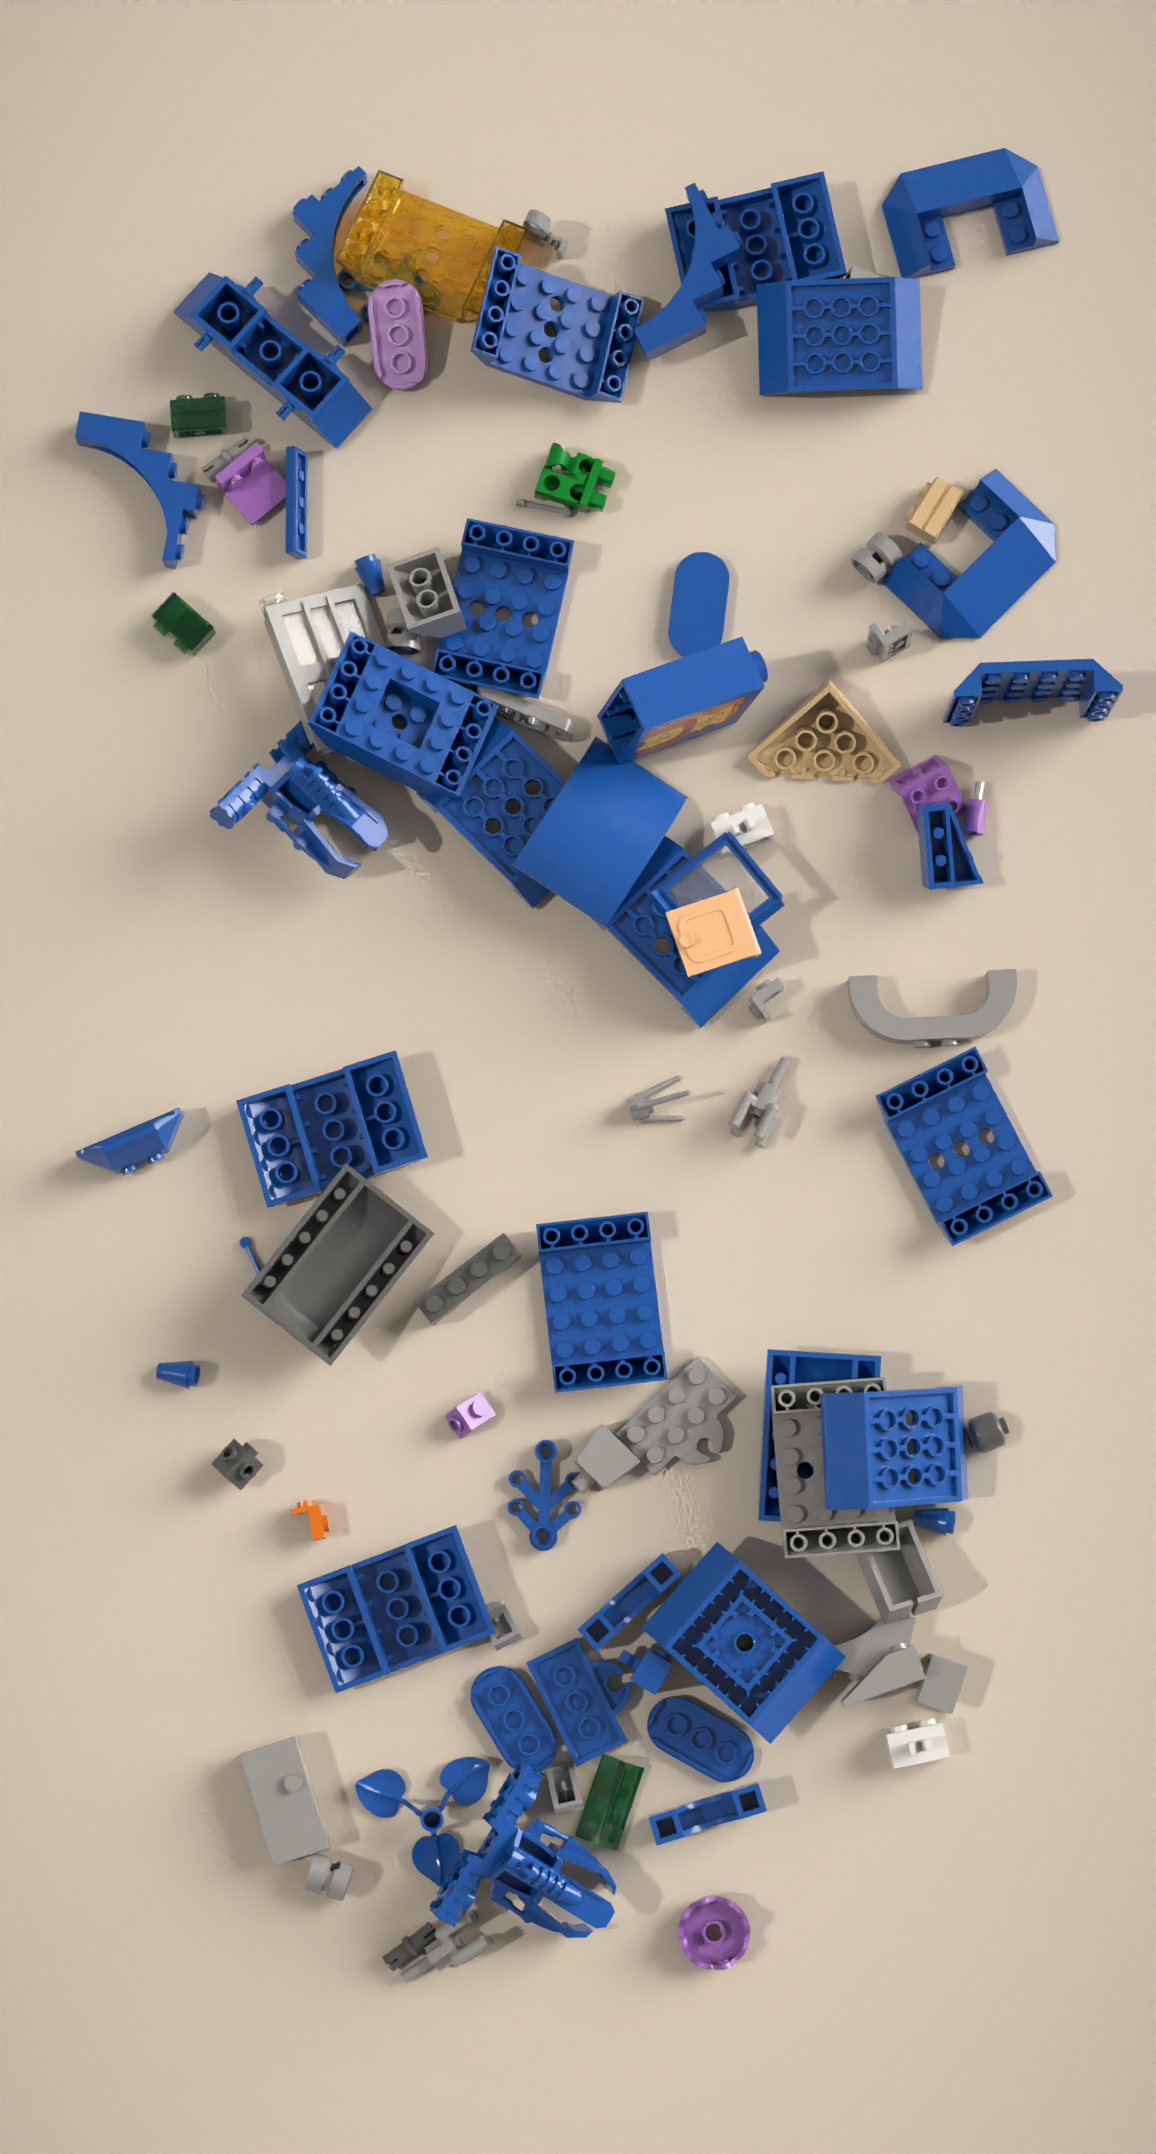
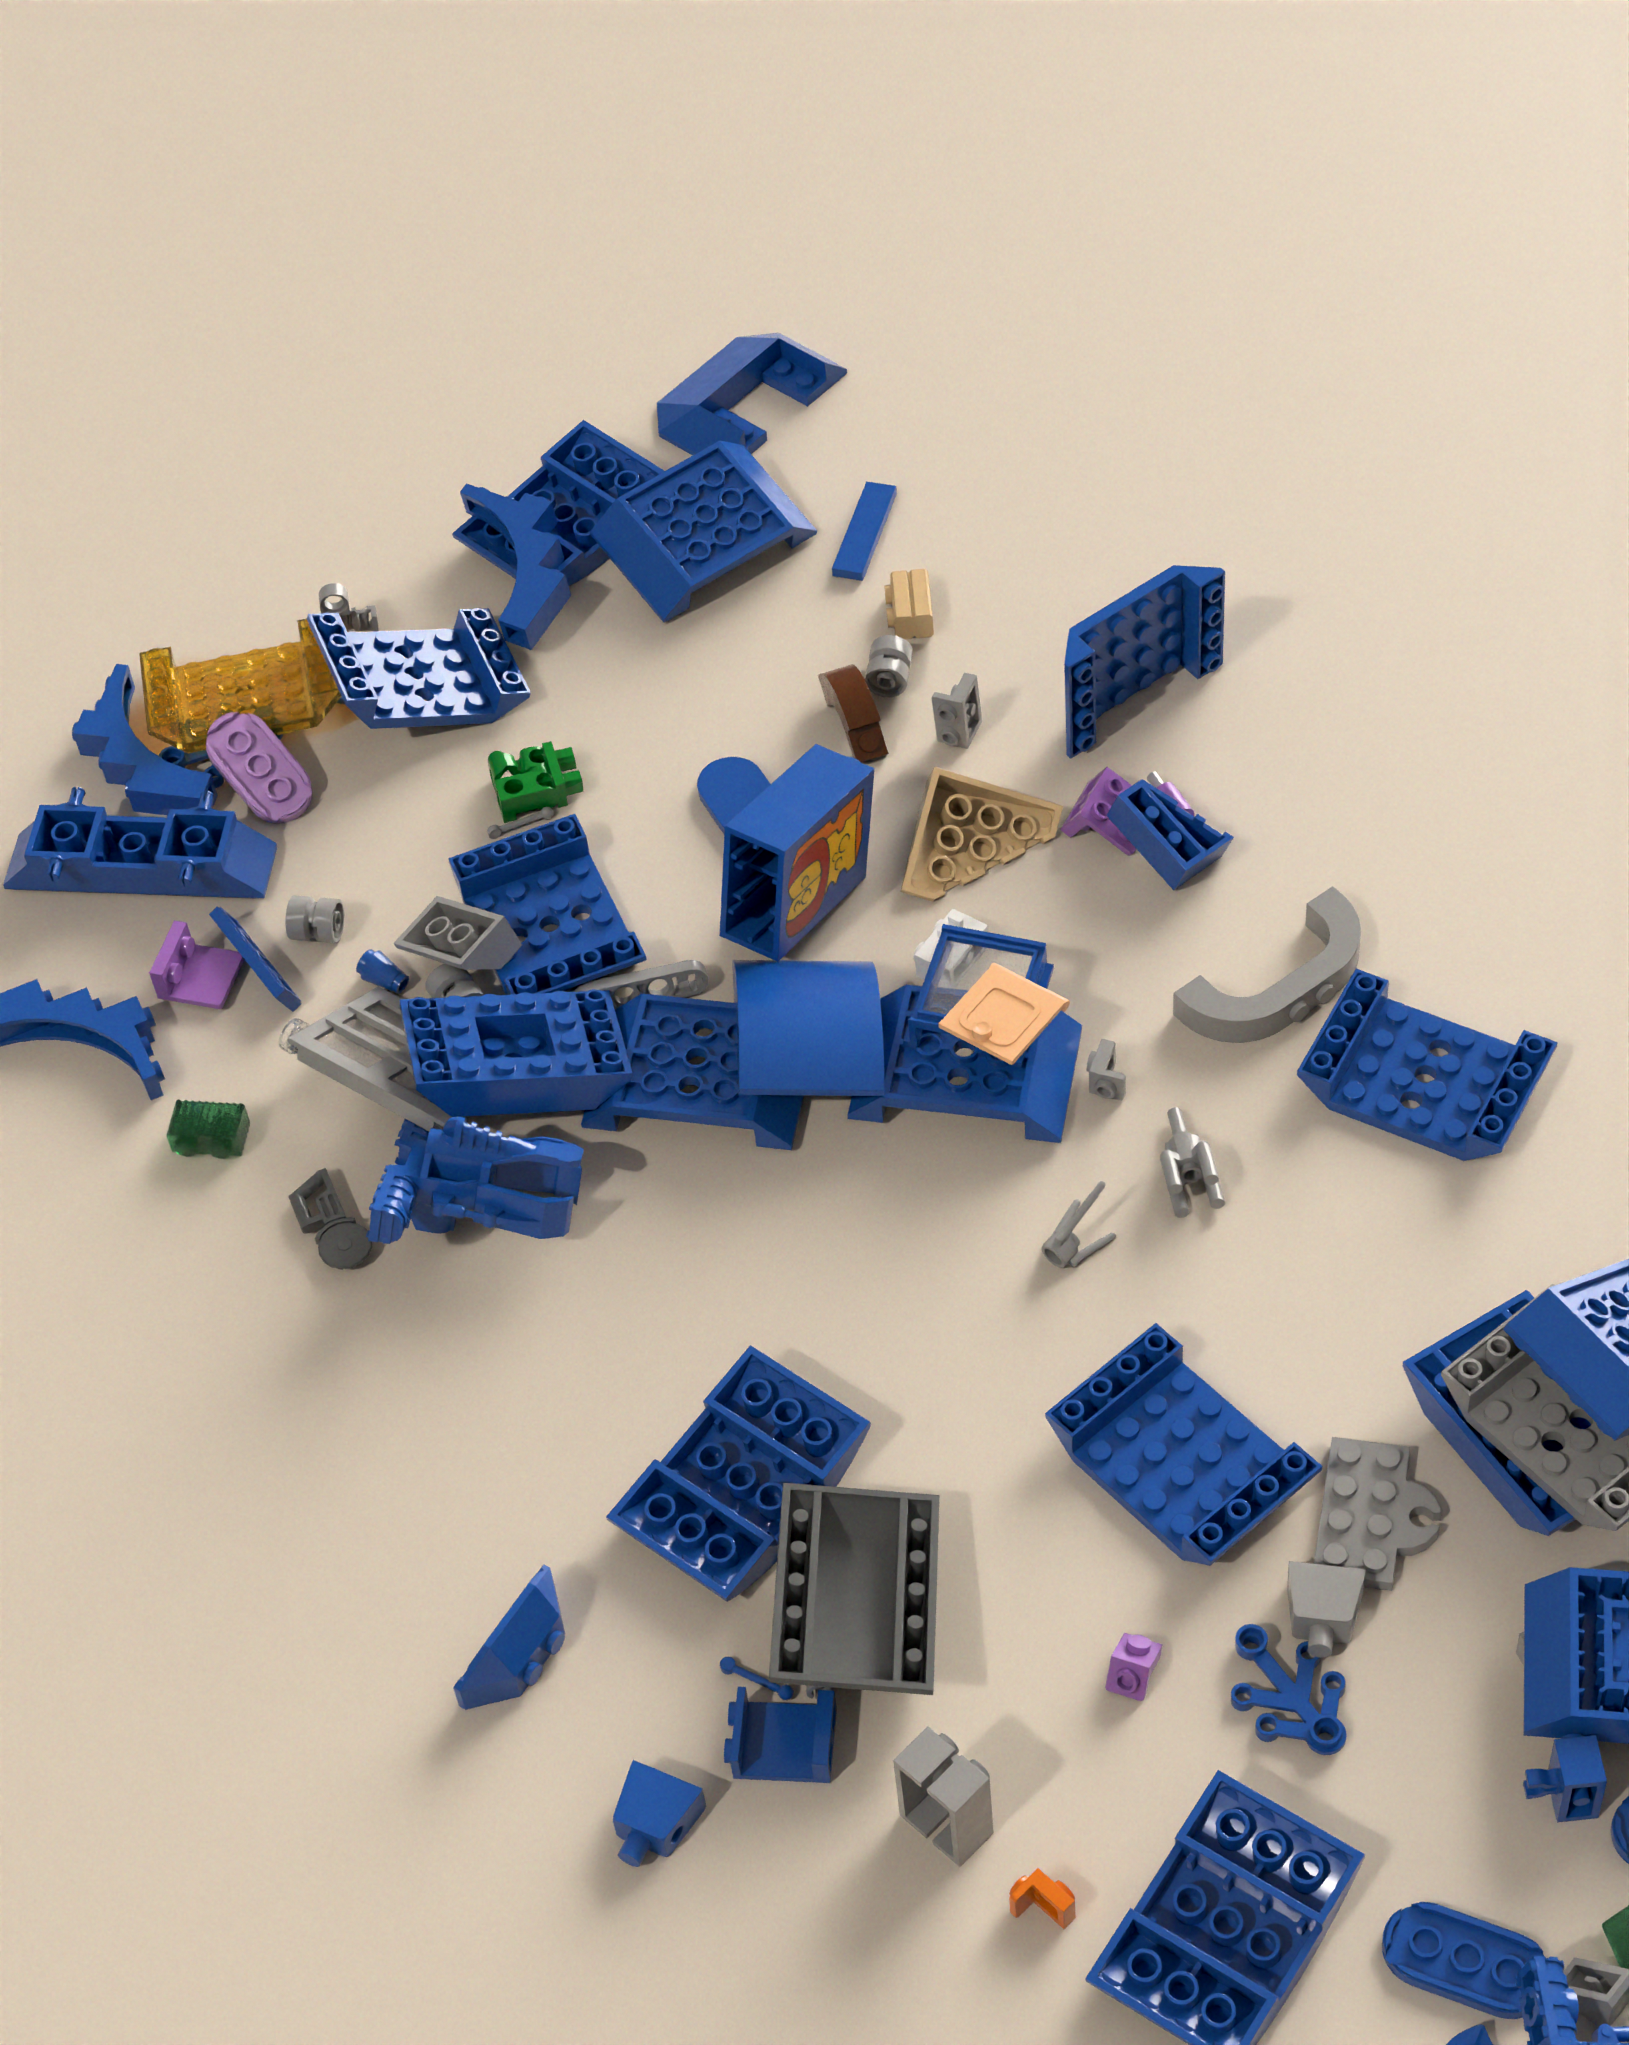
camera: 30 degrees left, 30 degrees down
(137, 1309) = (654, 1812): none -> blue torso
(179, 1373) = (756, 1850): blue cone -> none
(199, 416) = (94, 949): clear green brick -> none
(213, 776) = (340, 1239): none -> dark grey piece
(225, 458) = (143, 984): light grey pin -> none
(236, 1316) = (781, 1739): none -> blue panel
(238, 1463) = (905, 1896): dark grey brick -> none
(295, 1414) = (941, 1785): none -> light grey piece
(357, 501) = (312, 918): none -> light grey wheel
(468, 1278) = (1009, 1535): dark grey arch -> none
(504, 1625) = (1377, 1860): light grey bracket -> none
(581, 1700) = (1524, 1877): blue plate -> none
(629, 1601) = (1484, 1726): blue arch -> none
(823, 580) = (854, 703): none -> reddish brown arch
(956, 412) = (864, 531): none -> blue tile
(996, 580) = (1015, 628): blue slope -> none

